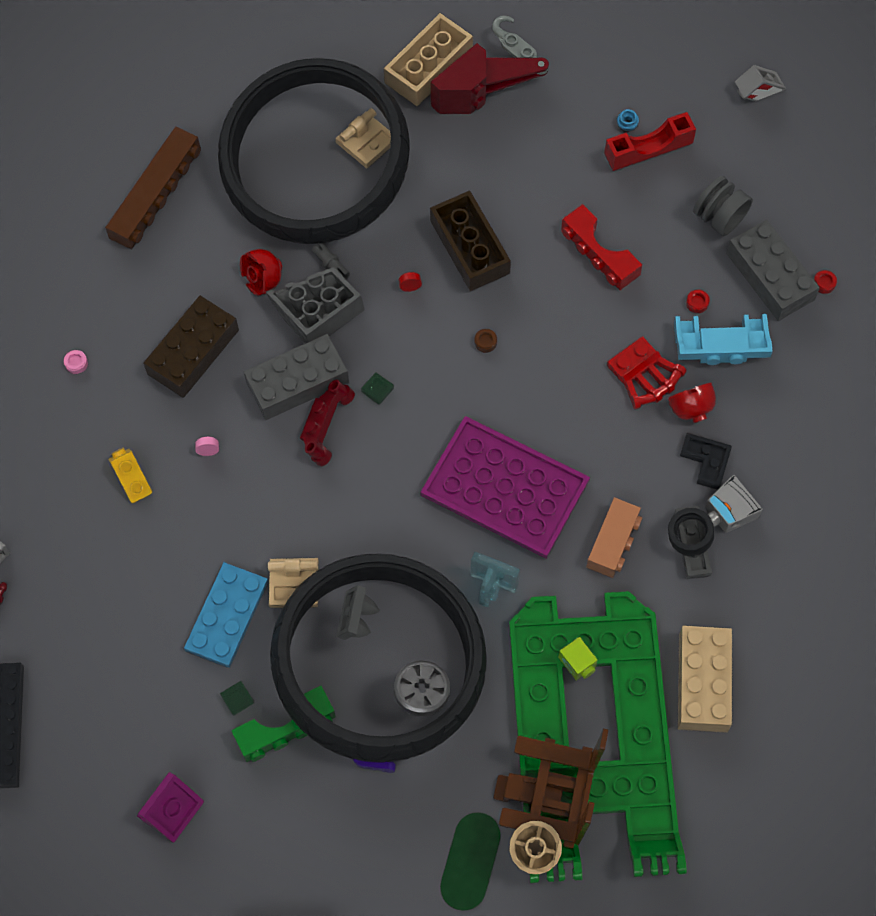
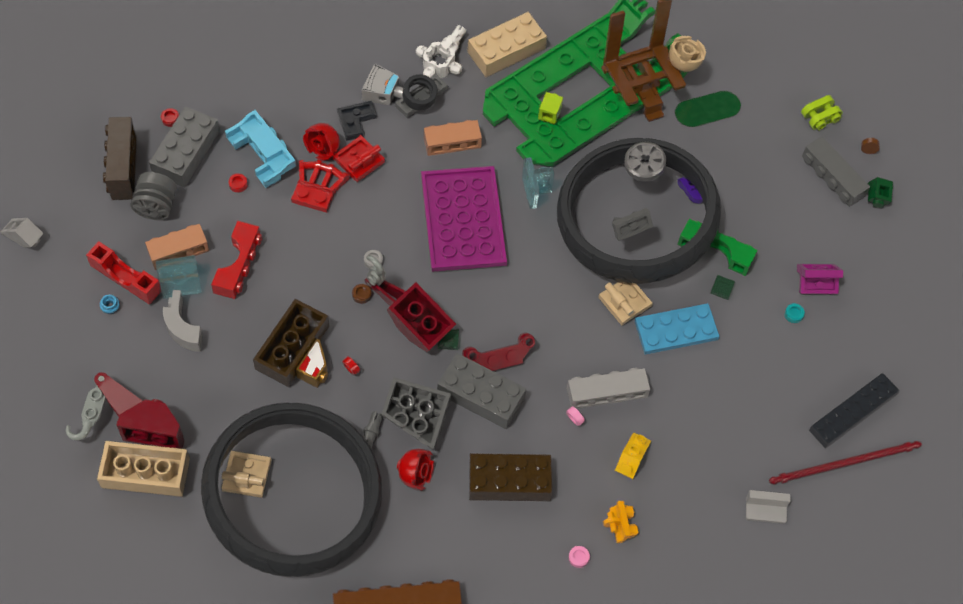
camera: 130 degrees left, 5 degrees down
(83, 421) = (618, 522): none -> light orange hips
(152, 752) = (794, 313): none -> teal tile
(211, 496) = (608, 388): none -> light grey brick
(420, 358) = (414, 310): none -> dark red slope
(433, 250) = (313, 366): none -> slope
(517, 374) = (374, 253): none -> light grey tile
(560, 159) = (182, 333): none -> light grey arch
(616, 186) = (179, 275): none -> clear light blue bracket
(649, 428) = (359, 158): none -> red plate
(654, 204) = (177, 244): none -> nougat brick
(740, 609) = (447, 50): none -> white piece
(791, 200) = (120, 158): none -> dark brown brick

